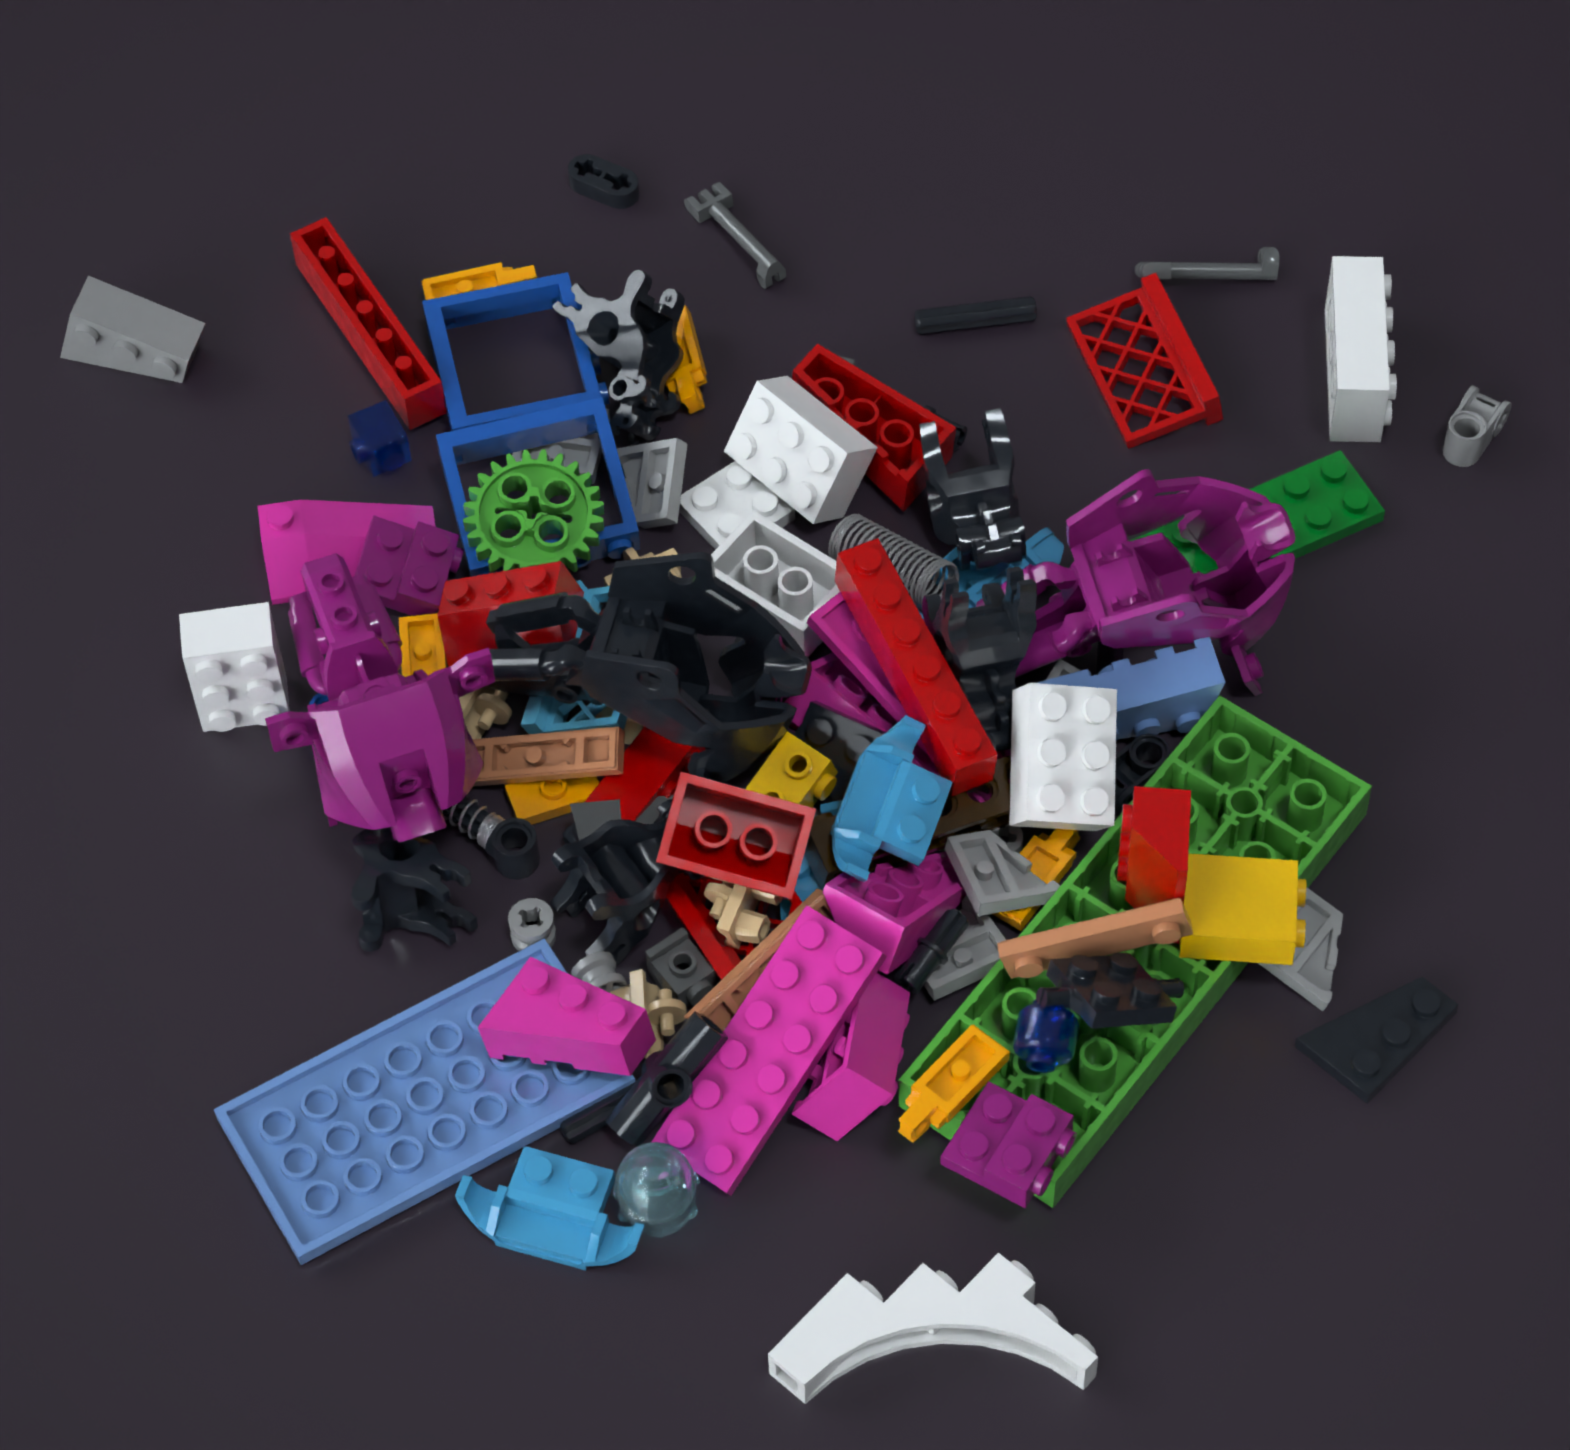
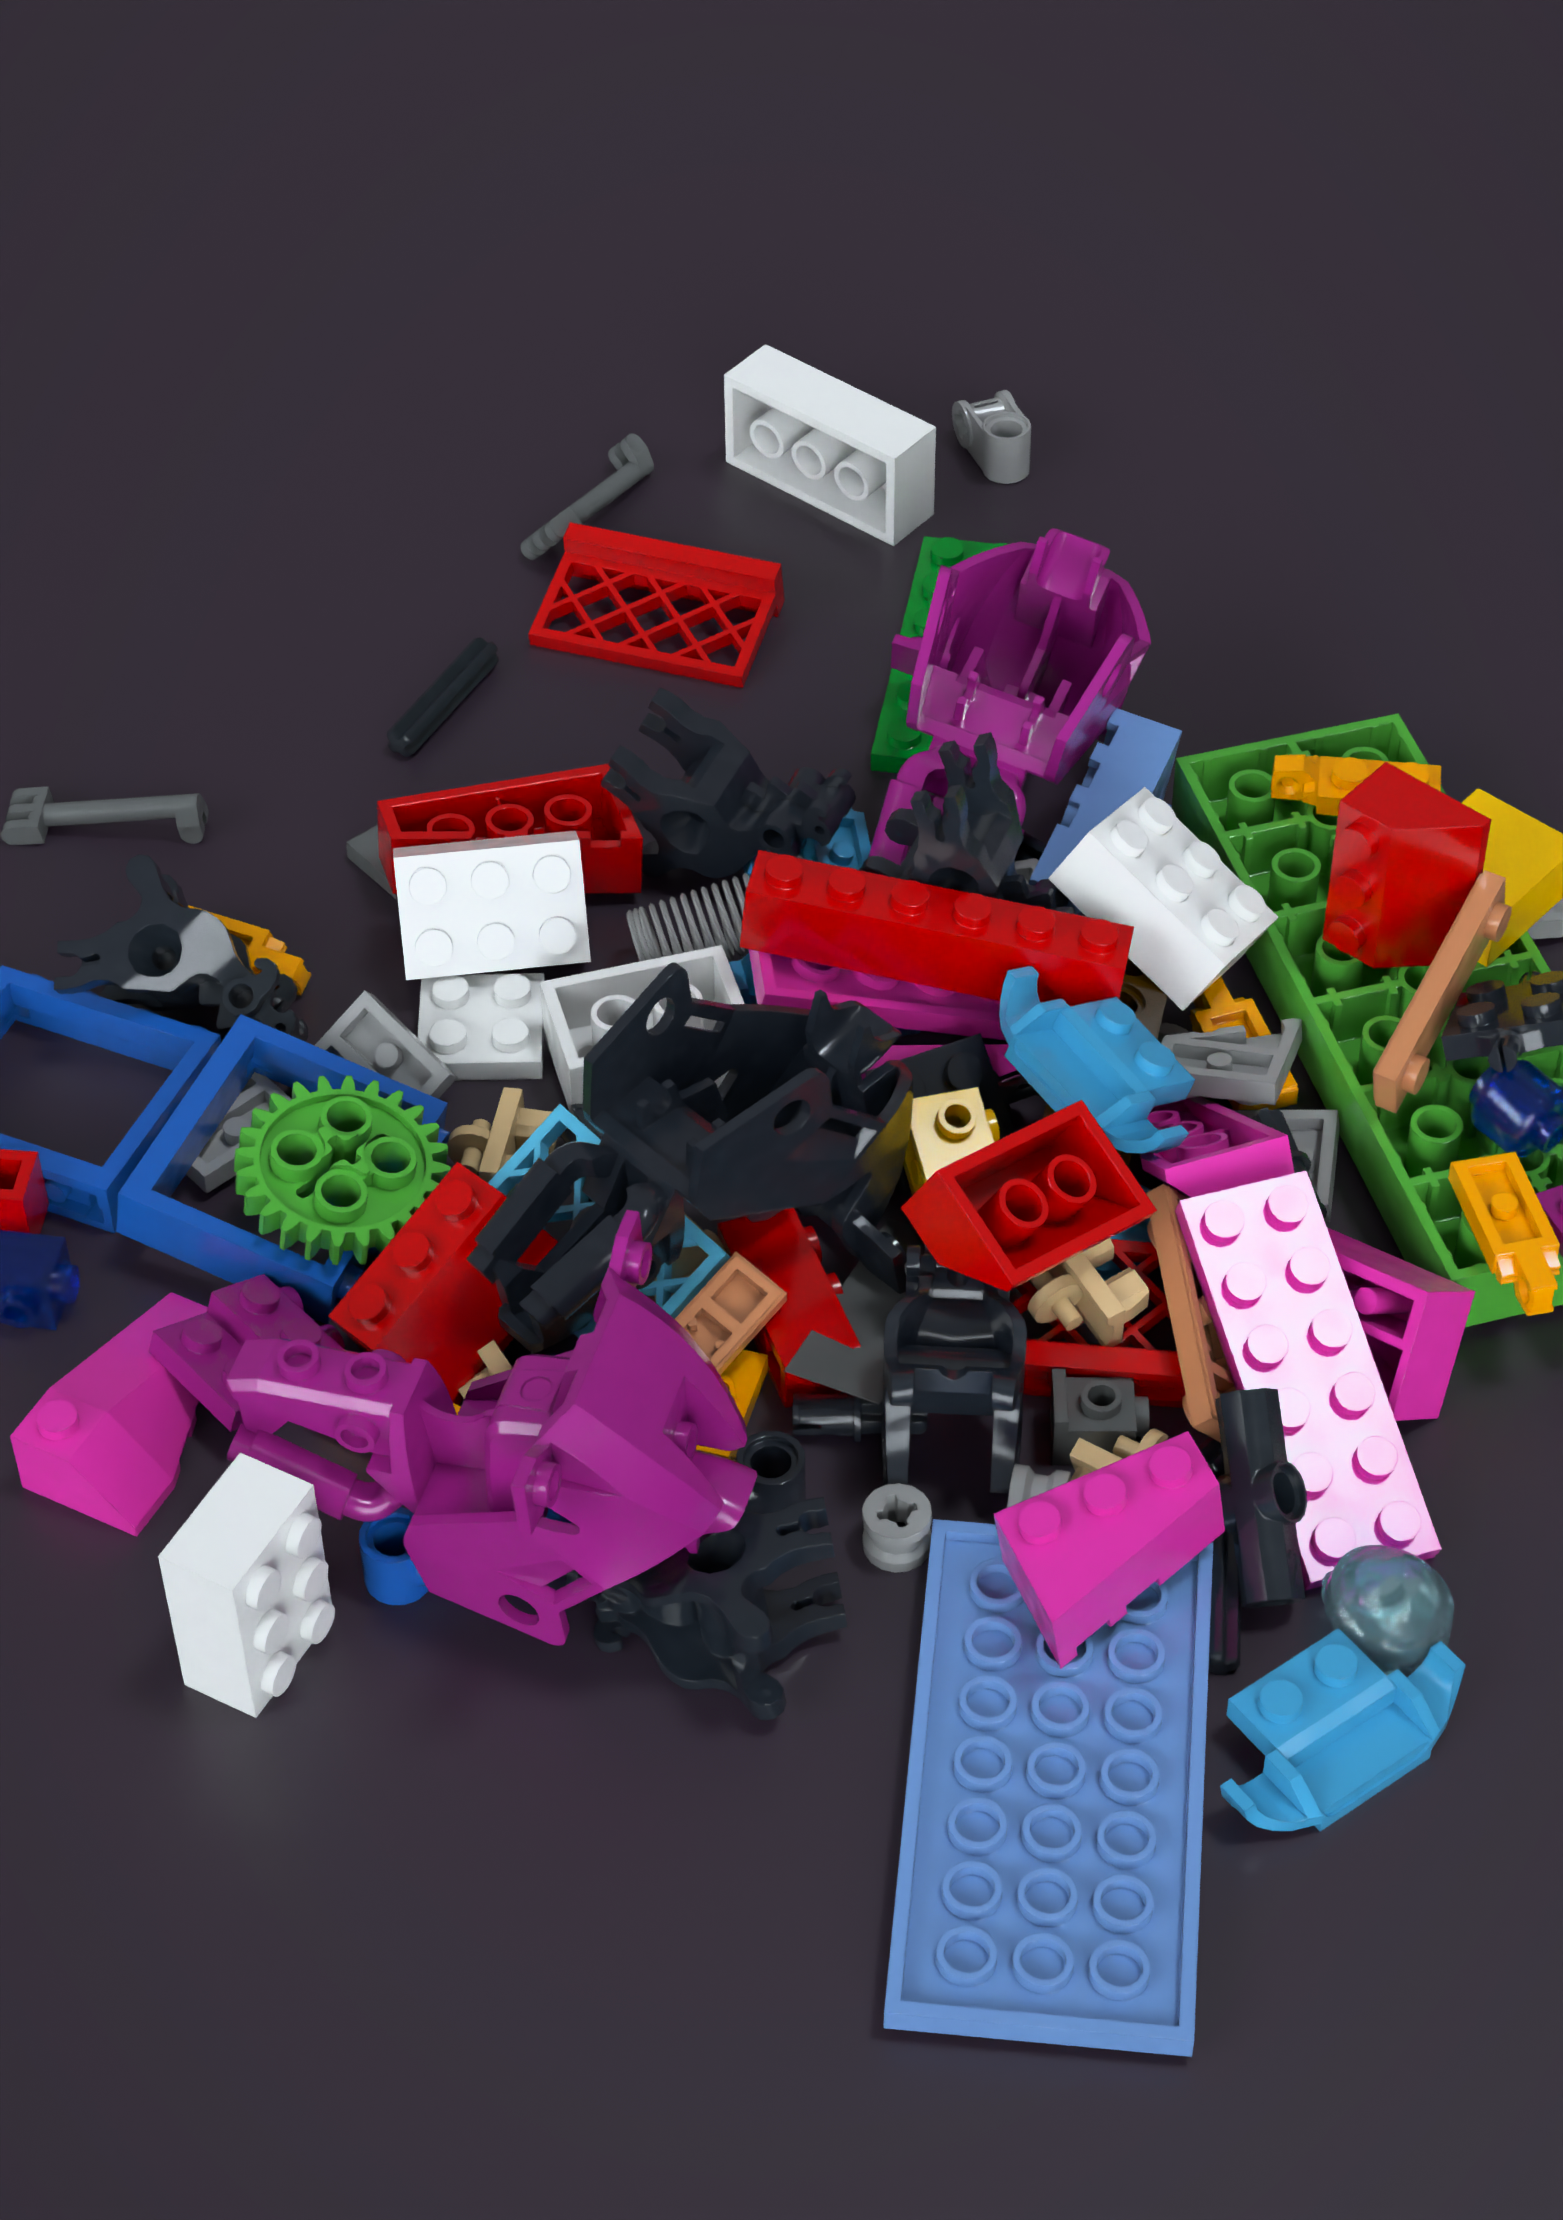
camera: 55 degrees left, 10 degrees down
(1274, 804) = (1328, 779): none -> light orange hinge

